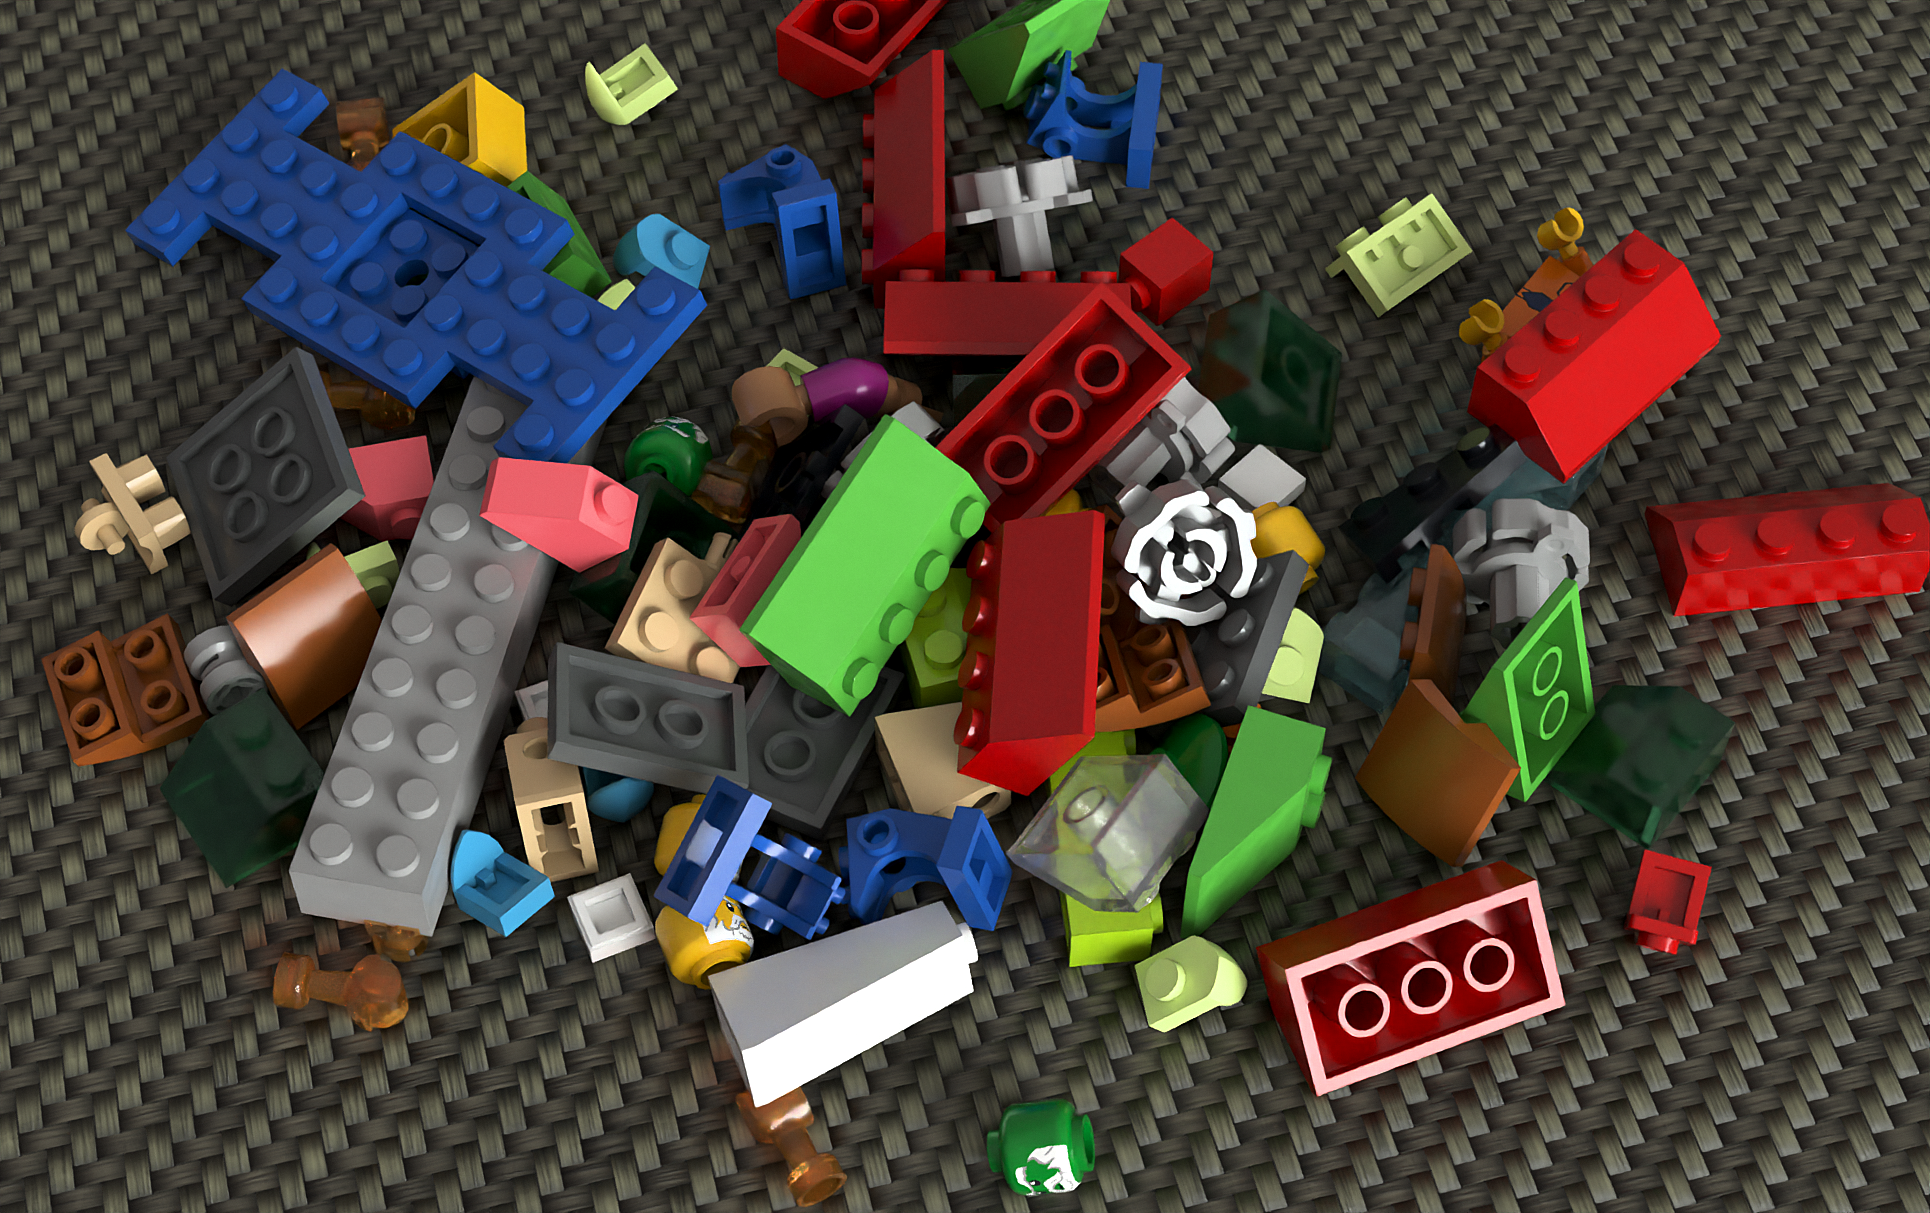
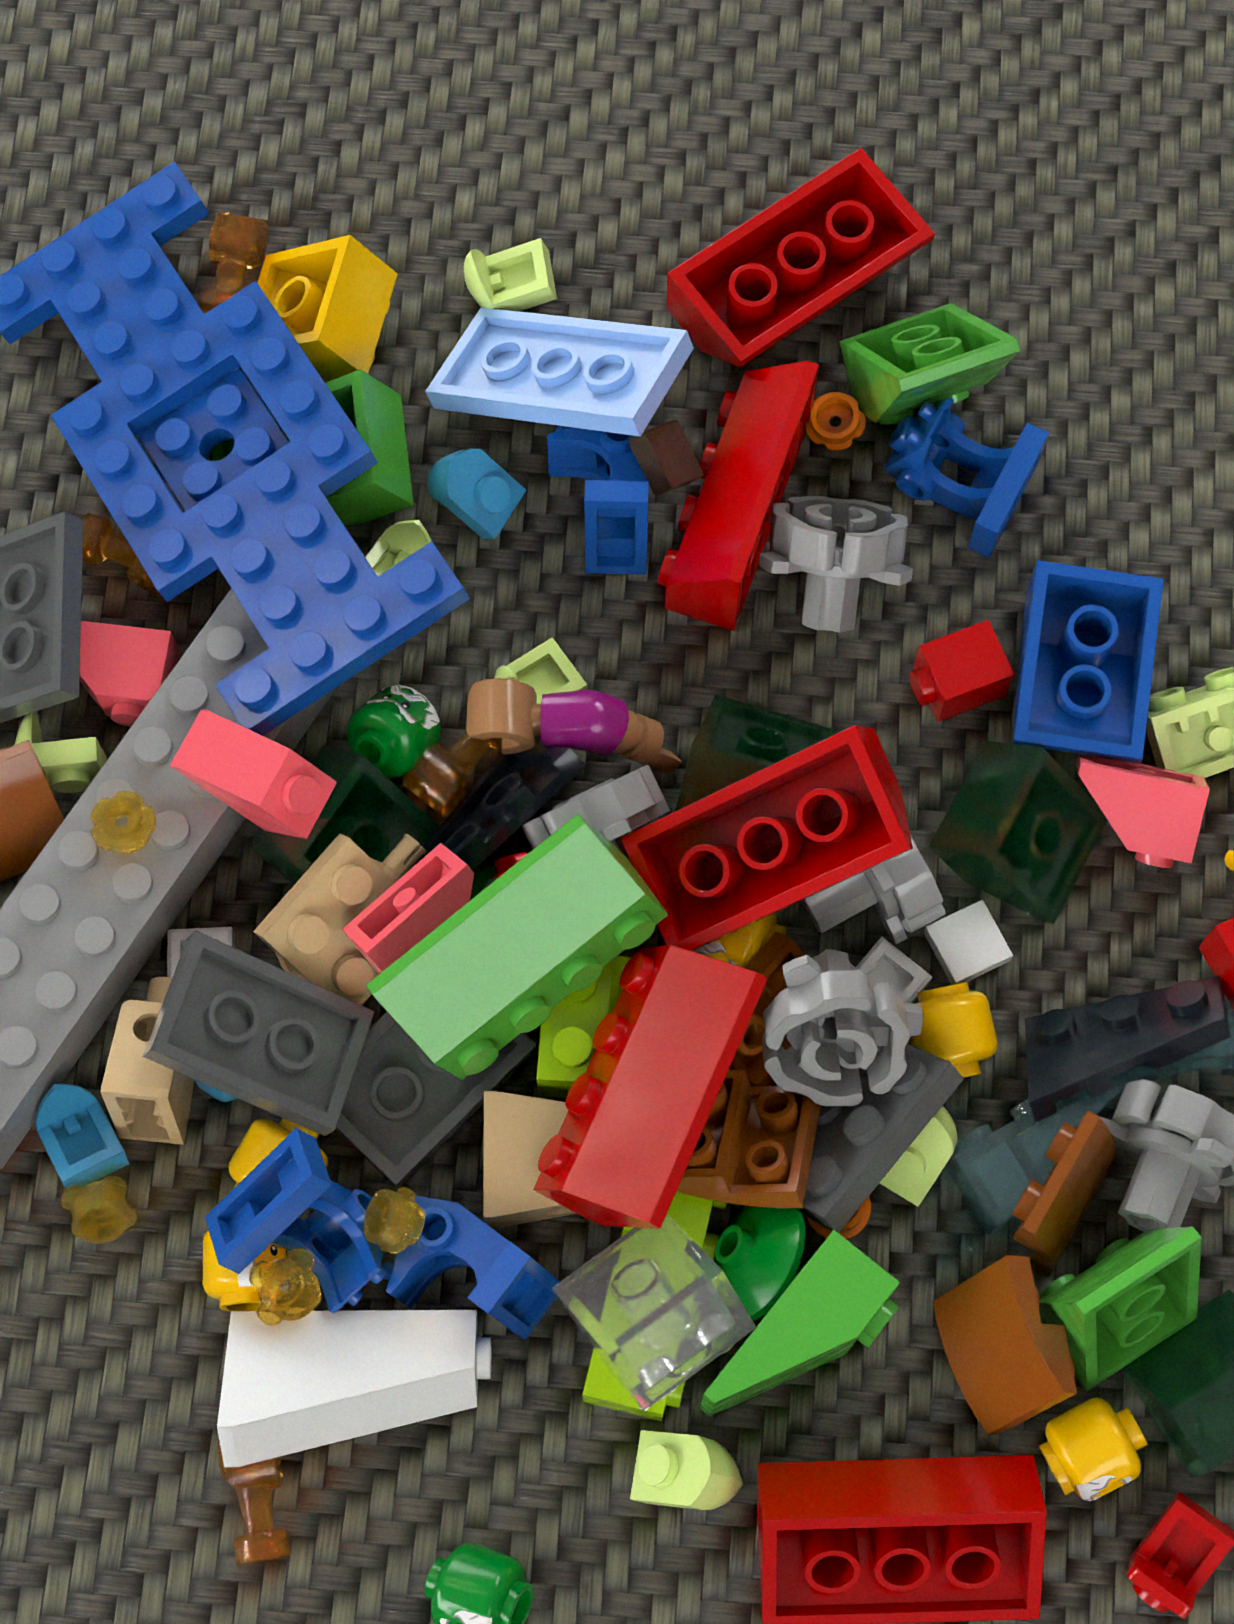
camera: 20 degrees right, 15 degrees up
(452, 594) = (130, 837): none -> clear yellow plate
(553, 955) = (99, 1210): none -> clear yellow plate
(611, 917) = (175, 1200): white tile -> none
(707, 131) = (560, 370): none -> light blue plate
(771, 923) = (302, 1294): none -> clear yellow plate
(828, 160) = (666, 458): none -> dark brown tile
(837, 835) = (393, 1220): none -> clear yellow plate
(968, 103) = (835, 405): none -> orange plate
(981, 314) = (766, 682): red slope -> none
(1270, 219) = (1086, 660): none -> blue slope
(1372, 323) = (1148, 806): none -> coral slope
(1553, 839) = (1093, 1449): none -> yellow head

